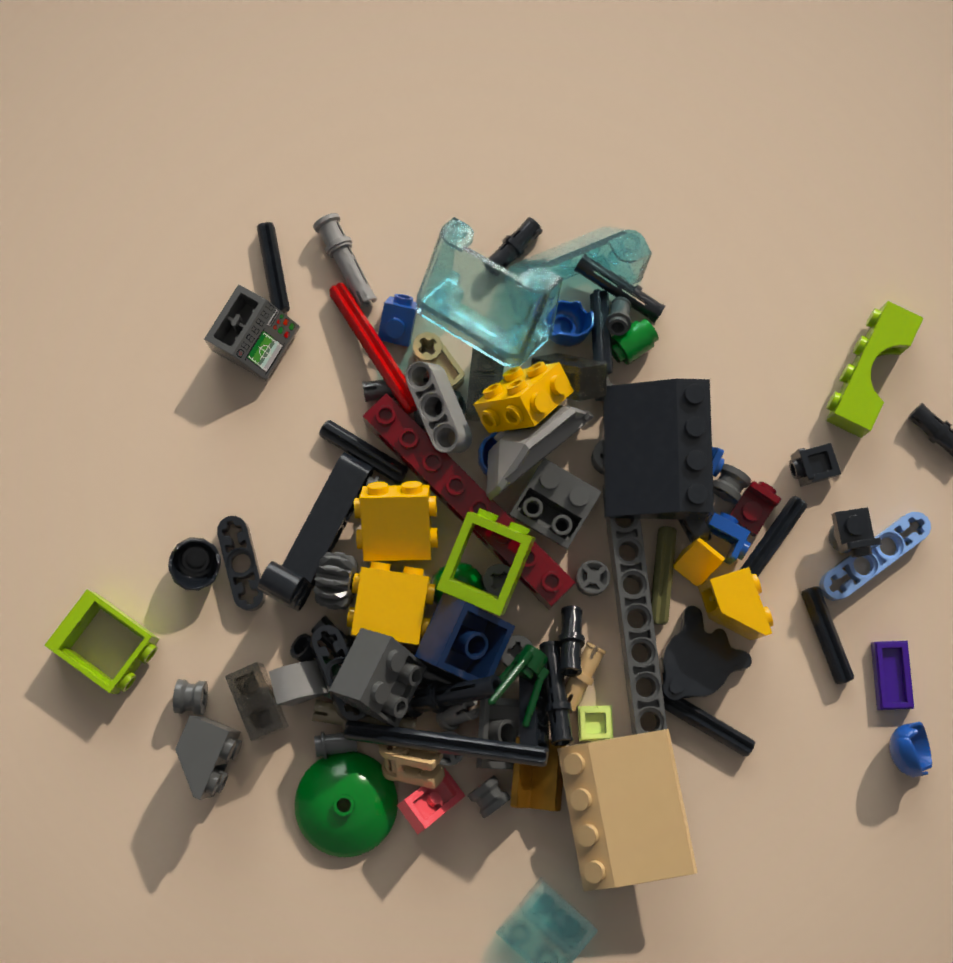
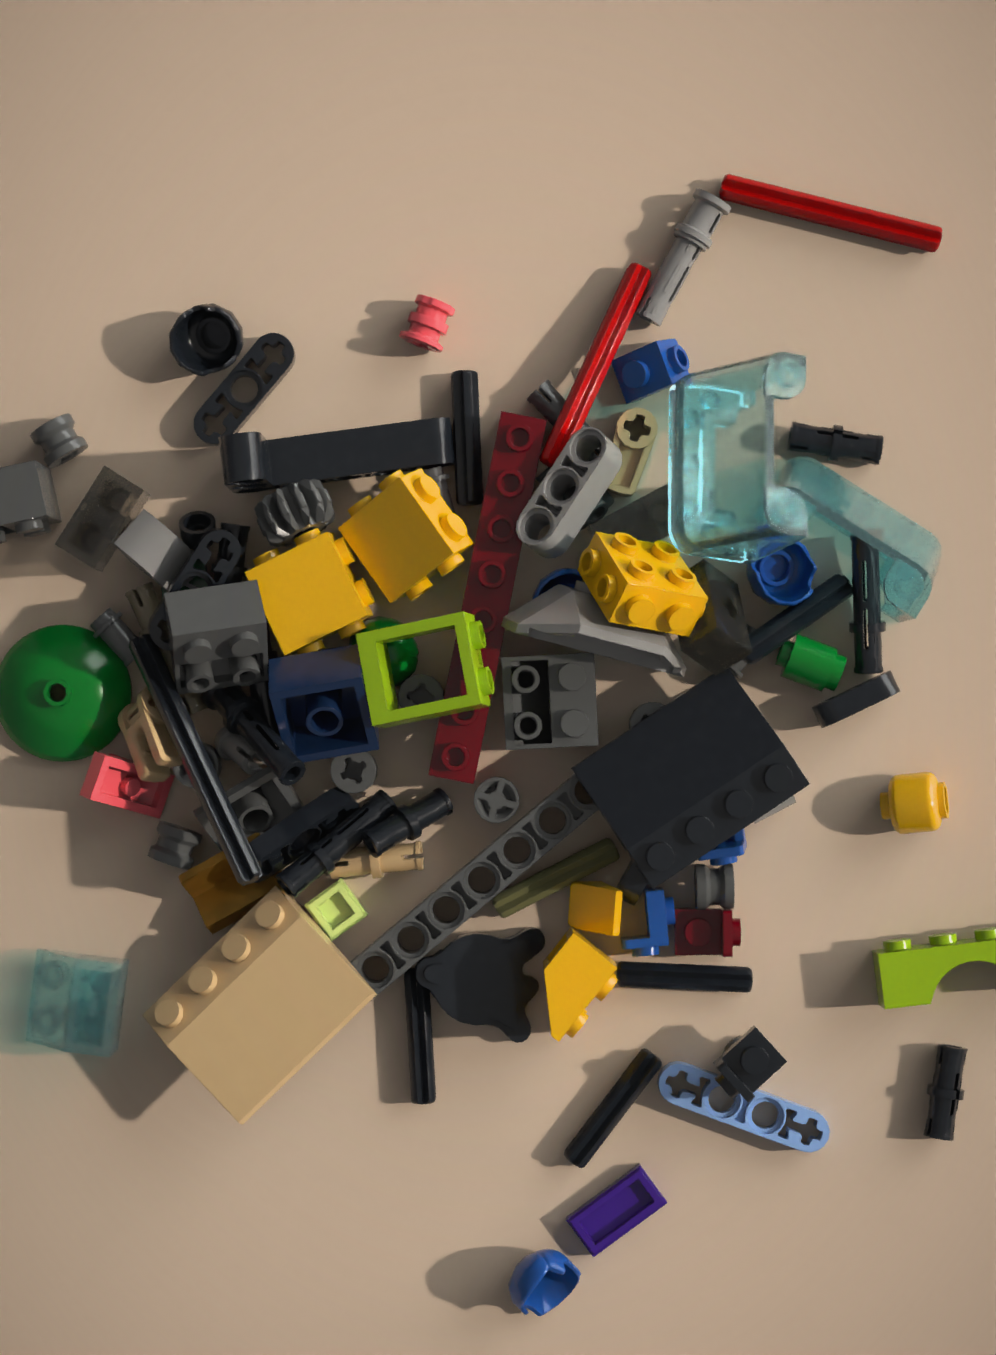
camera: 60 degrees right, 10 degrees up
(76, 623) = (50, 254): lime window -> none
(251, 333) = (515, 212): dark grey slope -> none
(273, 266) = (614, 177): black axle -> none
(280, 428) = (427, 323): none -> coral bush
(380, 164) = (830, 213): none -> red axle
(526, 664) = (342, 789): dark green plant -> none
(618, 320) = (819, 630): dark grey pin -> none
(671, 330) = (856, 699): none -> black beam
(755, 336) = (915, 802): none -> yellow head
(814, 464) = (803, 969): black bracket -> none

